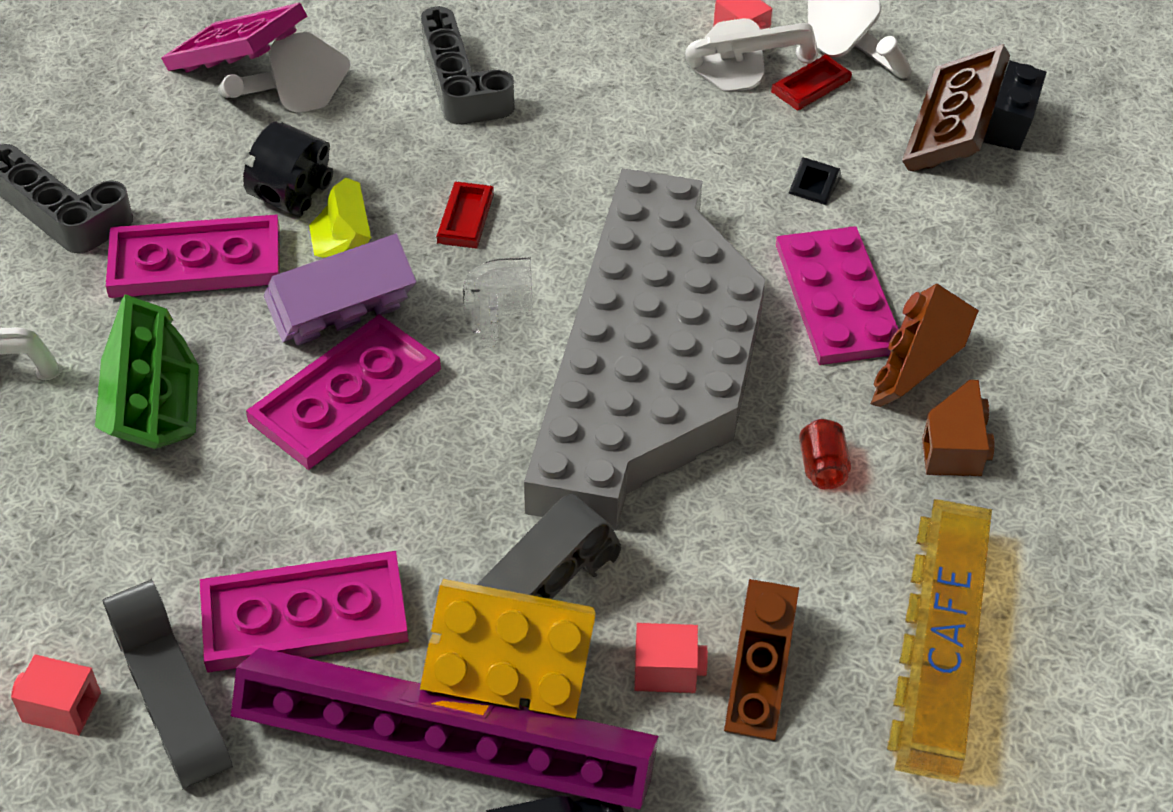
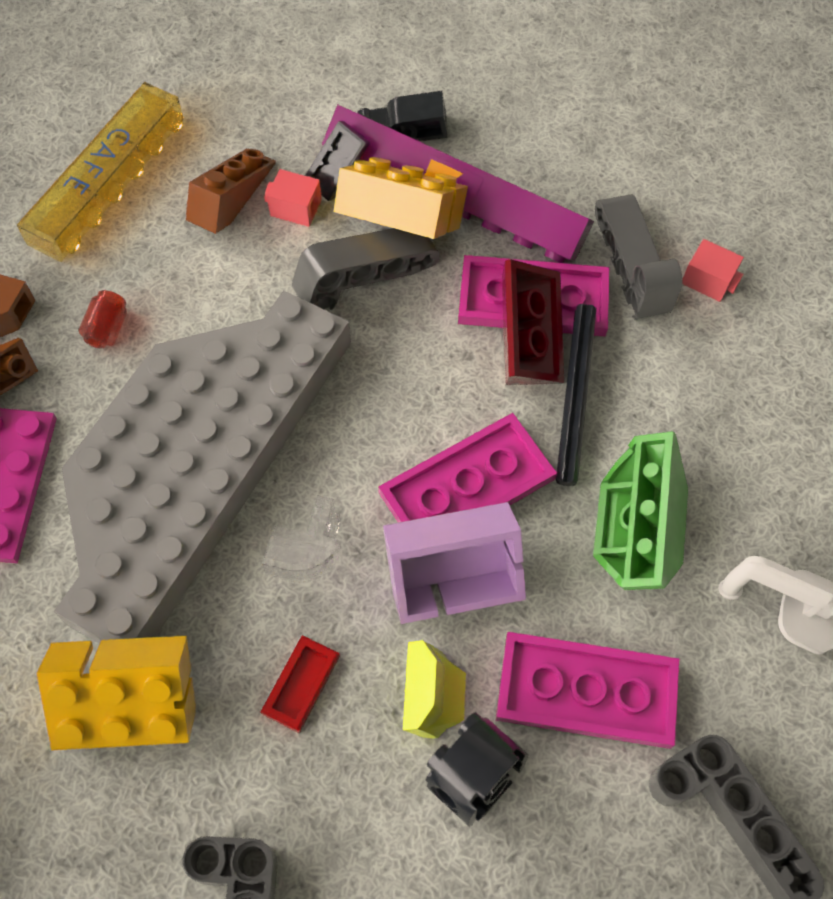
camera: 165 degrees left, 15 degrees up
(232, 501) = (576, 395): none -> black axle
(299, 540) = (532, 324): none -> dark red slope
(614, 142) = (124, 696): none -> yellow piece
(624, 705) = (339, 151): none -> plate

